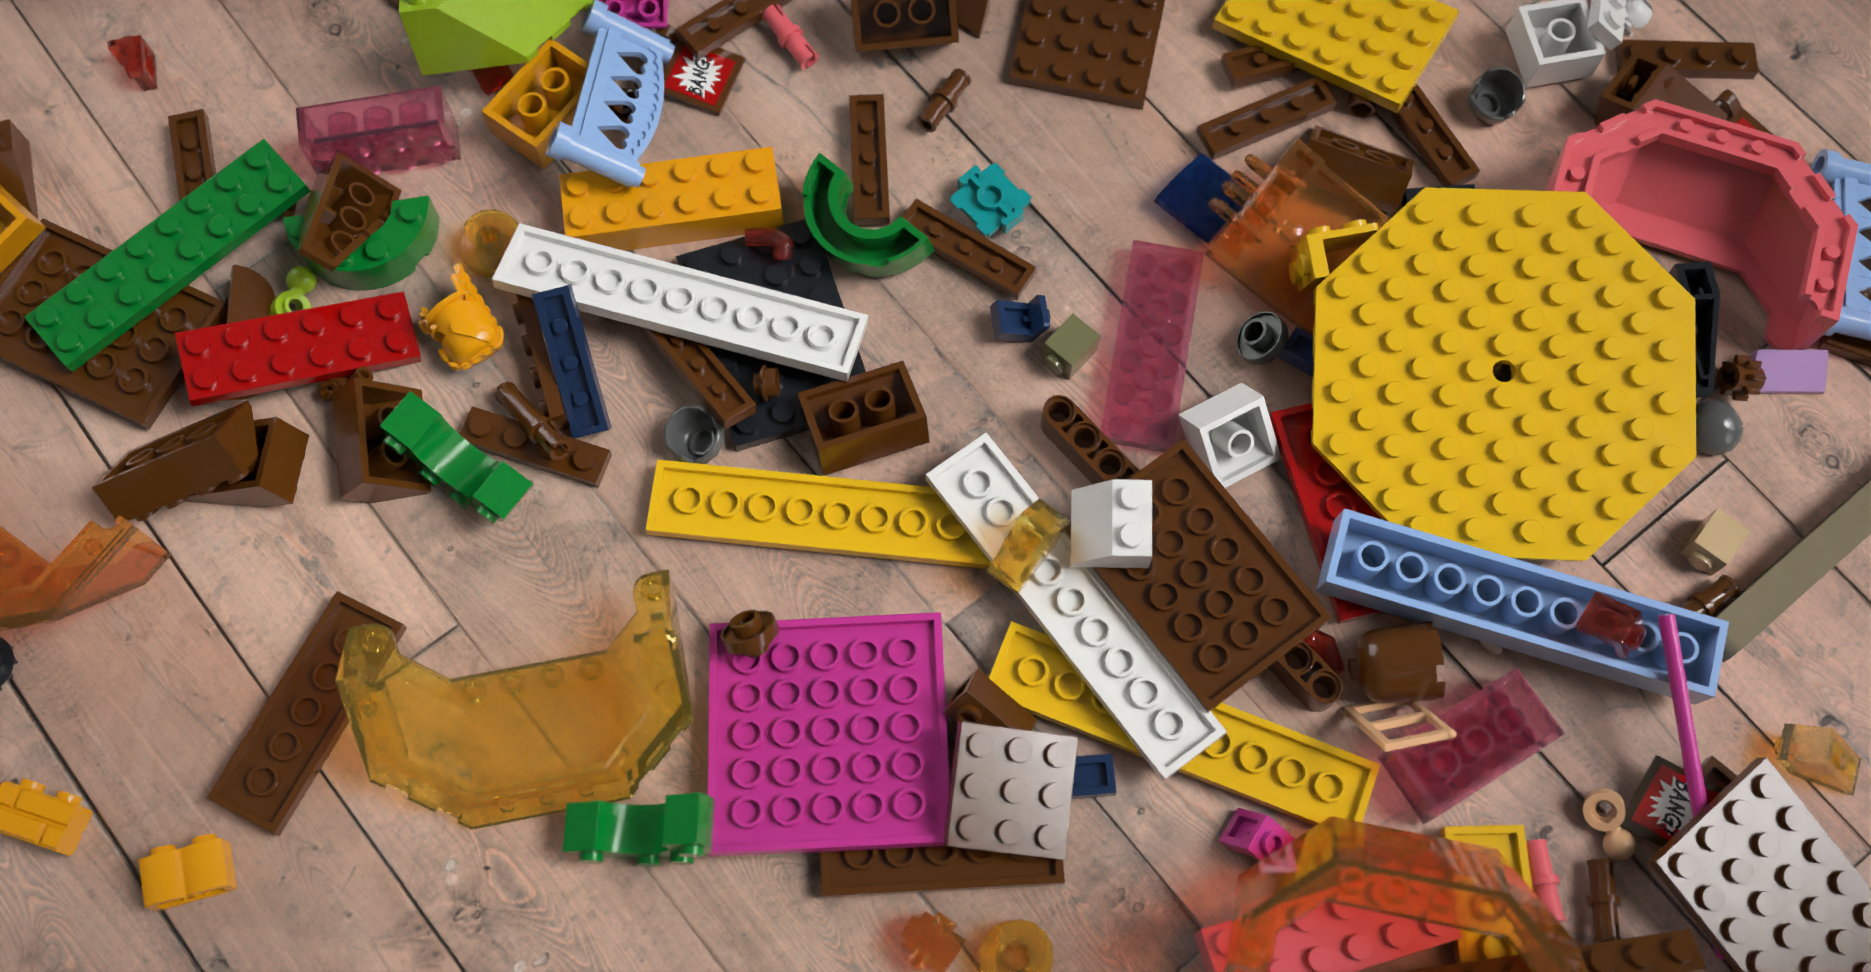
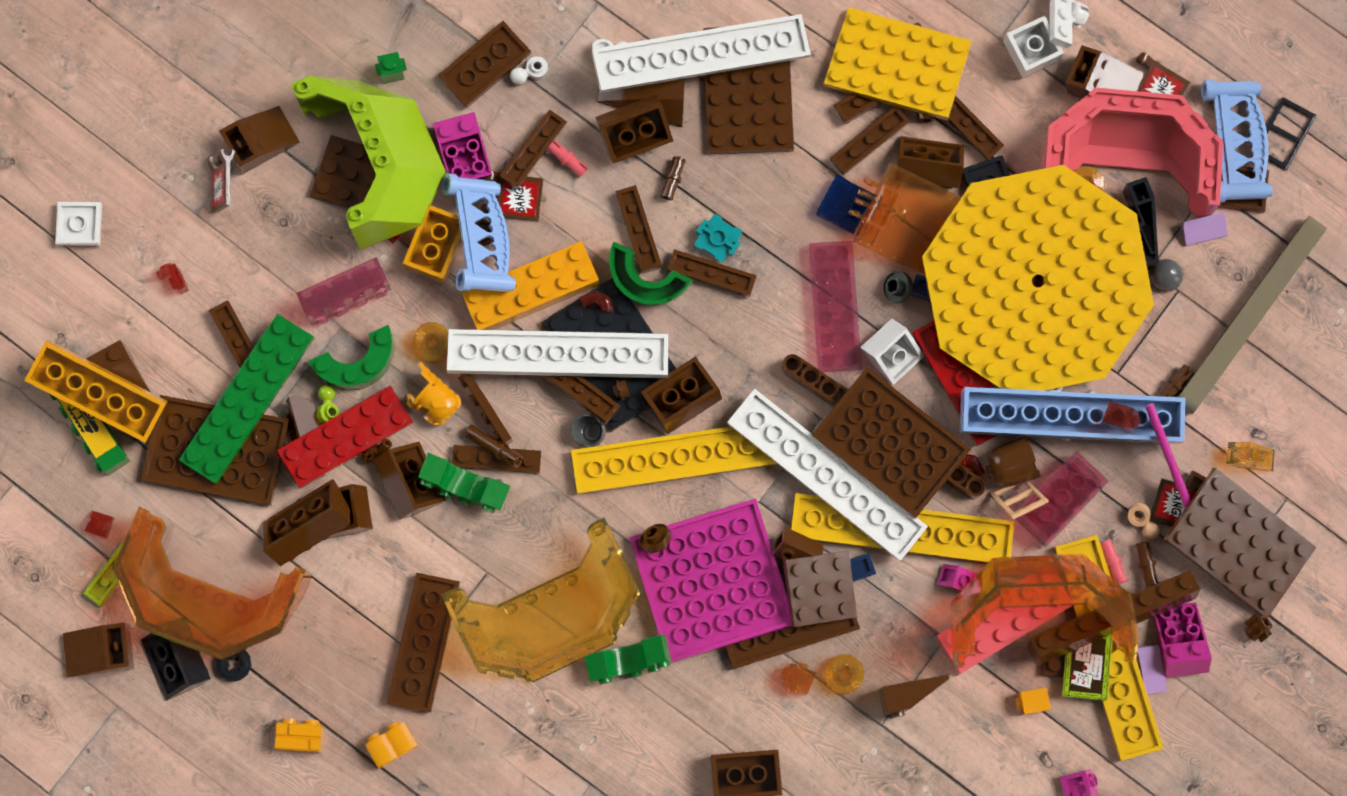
camera: 15 degrees left, 10 degrees up
(344, 211) = (344, 348): reddish brown wedge -> none
(572, 361) = (506, 406): dark blue plate -> none
(1020, 320) = (755, 310): dark blue bracket -> none
(1027, 545) = (795, 451): clear yellow slope -> none
(1070, 347) = (788, 320): olive brick -> none
(1112, 524) = (839, 428): white slope -> none
(1309, 258) = (914, 238): yellow bracket -> none
(1496, 95) = (1004, 92): dark grey hair -> none
(1696, 58) = (1117, 33): reddish brown plate -> none
(1714, 542) = (1176, 346): tan brick -> none
(1741, 378) = (1176, 241): reddish brown gear -> none

